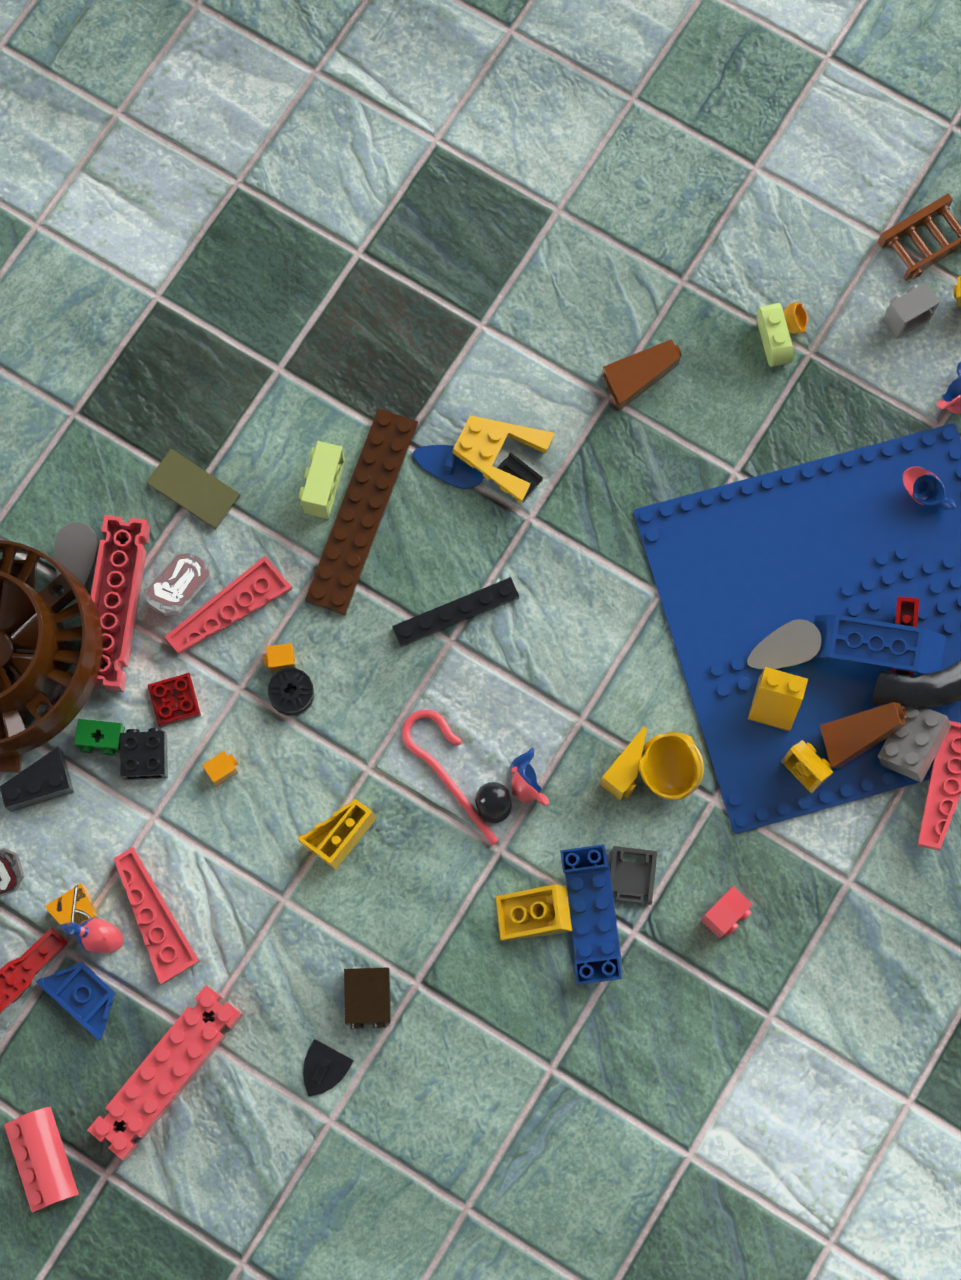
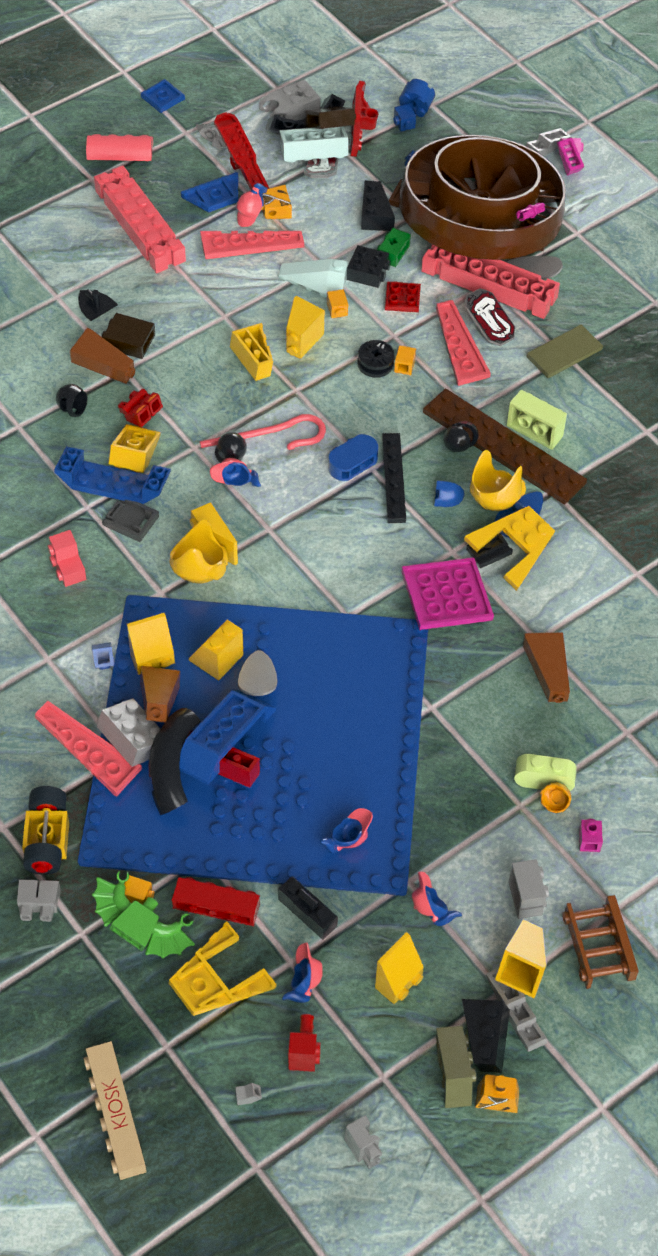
camera: 110 degrees right, 20 degrees down
(28, 564) = (530, 211): none -> dark pink axle
(182, 805) = (316, 275): none -> light aqua wedge
(283, 789) = (303, 327): none -> yellow slope
(379, 558) = (457, 439): none -> black helmet
(413, 1016) = (102, 357): none -> dark orange slope
(442, 488) = (495, 488): none -> yellow piece
(449, 663) = (353, 457): none -> blue brick
(461, 545) = (448, 494): none -> blue brick
(464, 929) = (140, 407): none -> red hips
(494, 1017) = (71, 397): none -> black helmet
(596, 499) = (447, 593): none -> dark pink plate
(820, 277) = (590, 835): none -> dark pink brick
(830, 818) = (103, 656): none -> brick

